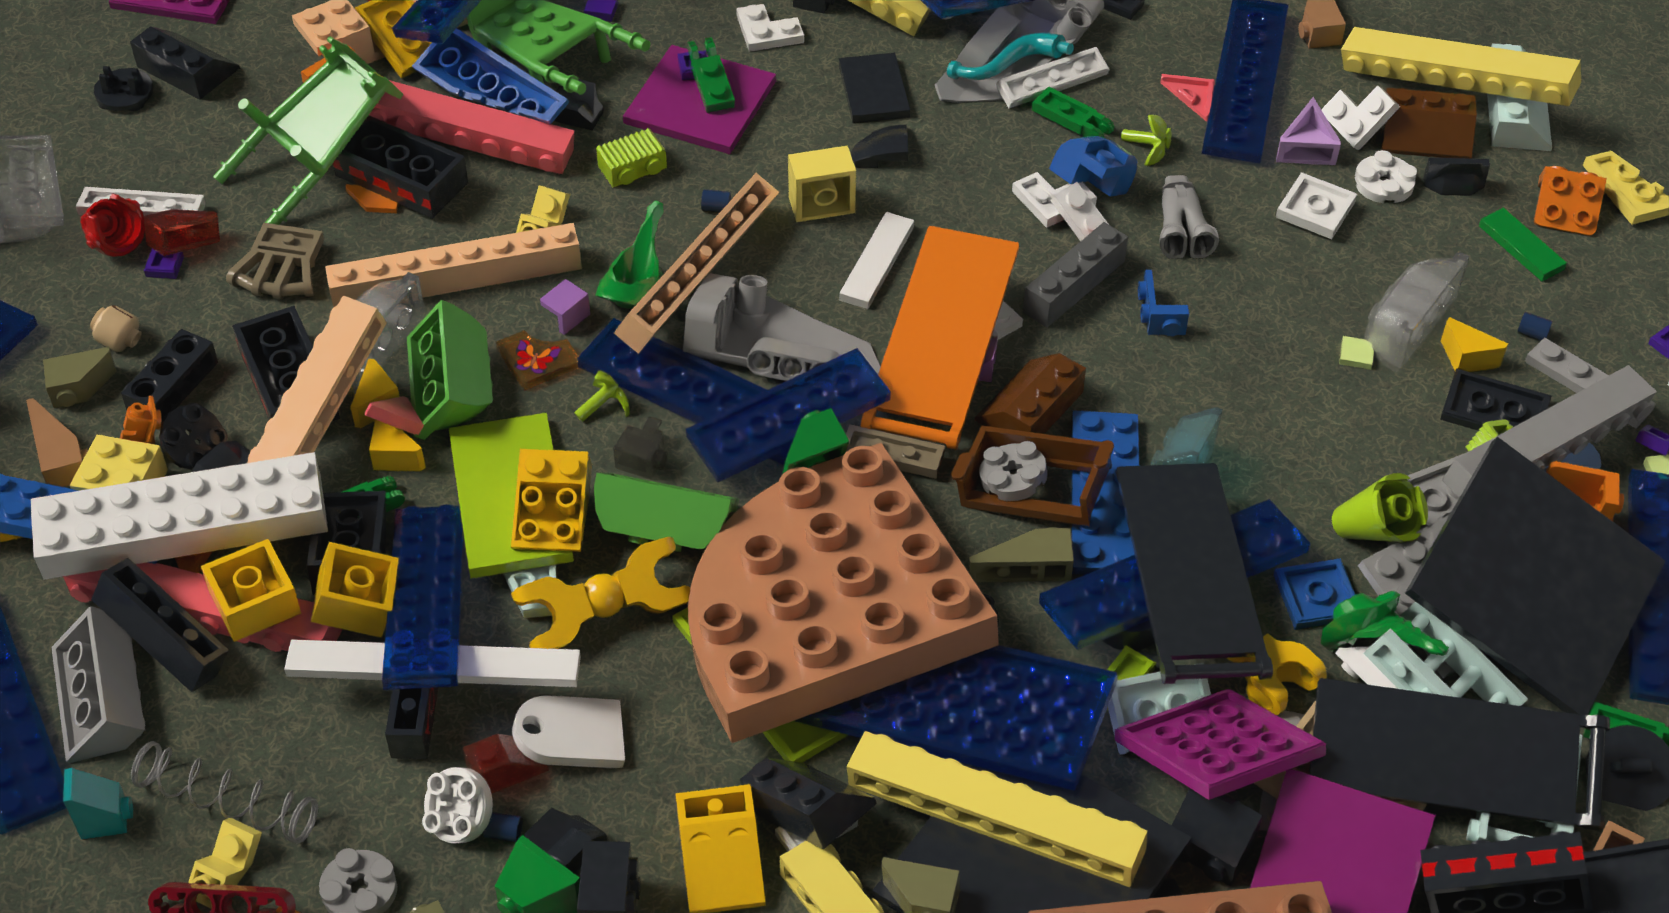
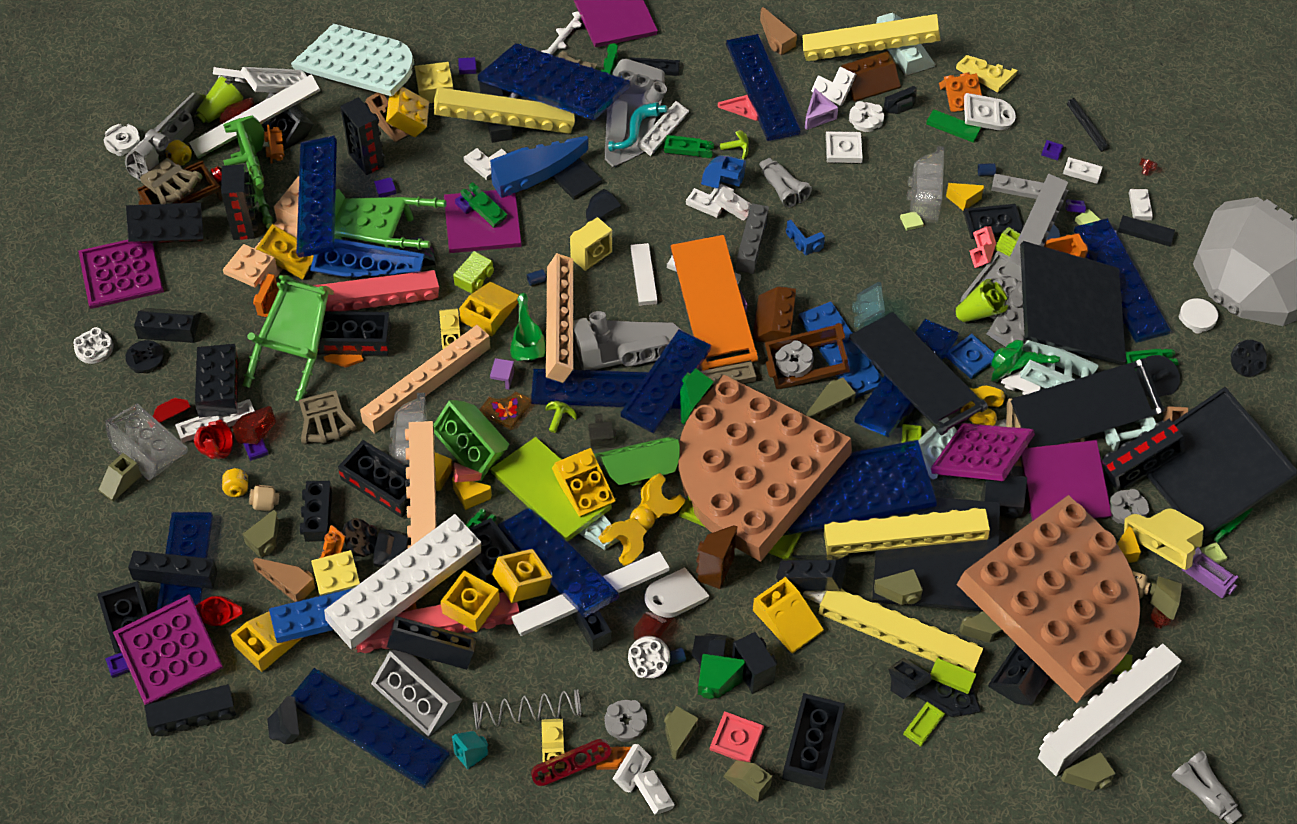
camera: 30 degrees left, 5 degrees up
(73, 52) = (93, 346): none -> white tile
(90, 165) = (170, 409): none -> red slope
(96, 291) = (235, 482): none -> yellow head
(177, 152) = (217, 380): none -> black brick
(611, 210) = (488, 307): none -> yellow slope
(667, 700) = (716, 556): none -> reddish brown slope
(813, 49) = (531, 166): none -> blue wedge
(1442, 443) = (986, 245): none -> coral slope
(1593, 245) = (988, 112): none -> white tile

